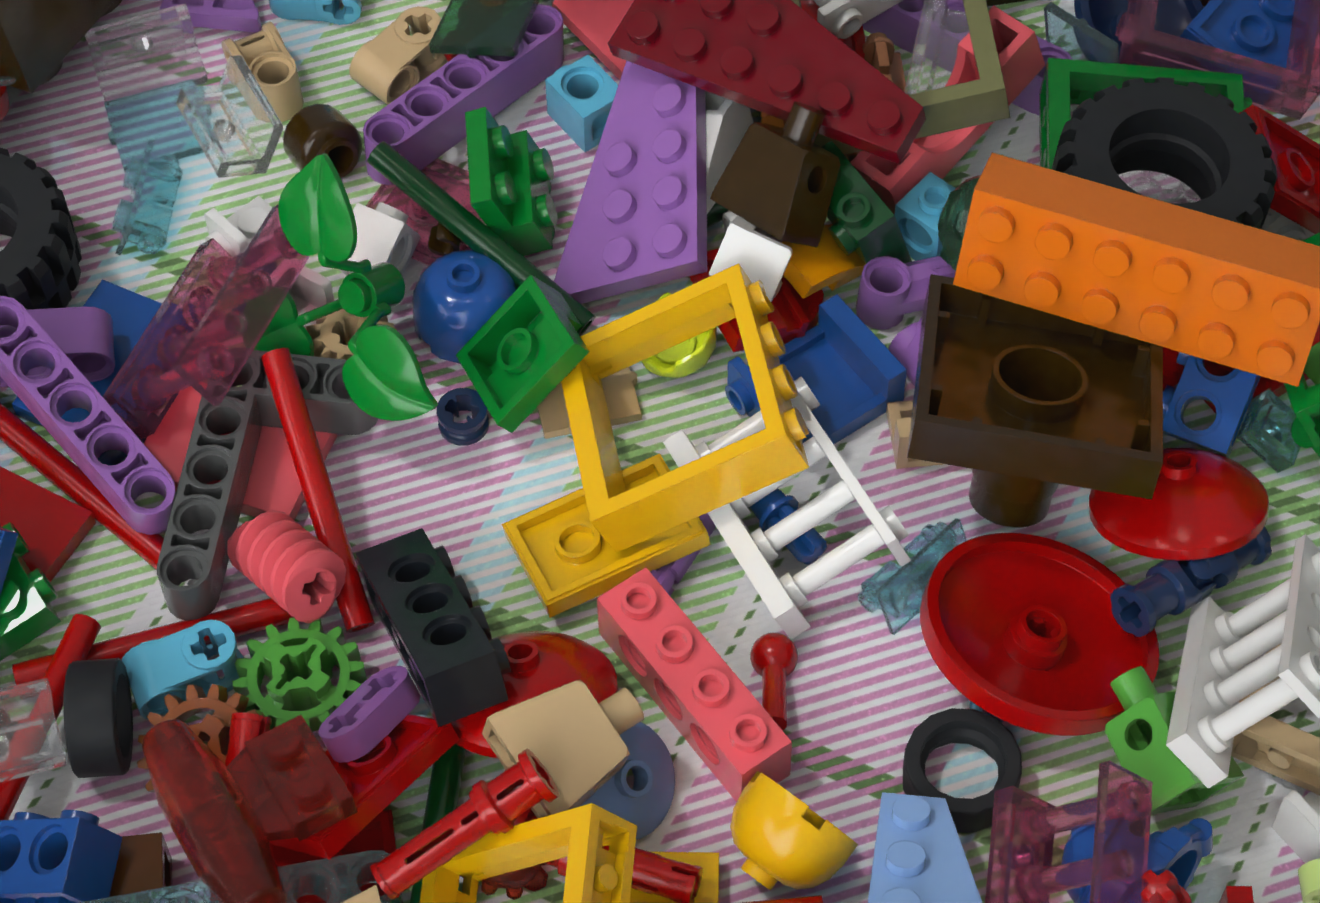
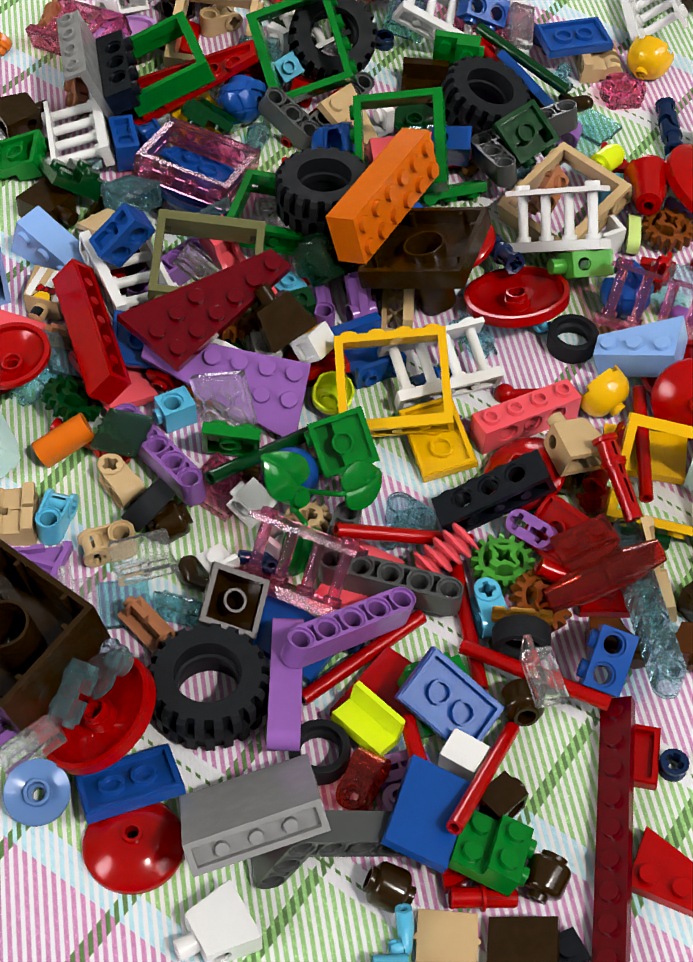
camera: 85 degrees left, 5 degrees down
(100, 162) = (145, 623): none -> nougat hinge
(130, 241) = (233, 599): none -> dark brown slope
(137, 700) = (500, 611): none -> pearl gold axle
(231, 189) = (189, 573): none -> dark brown arm
(332, 90) = (148, 504): none -> black tyre
(377, 503) = (407, 512): none -> clear light blue beam
(584, 153) = (223, 397): none -> clear plate

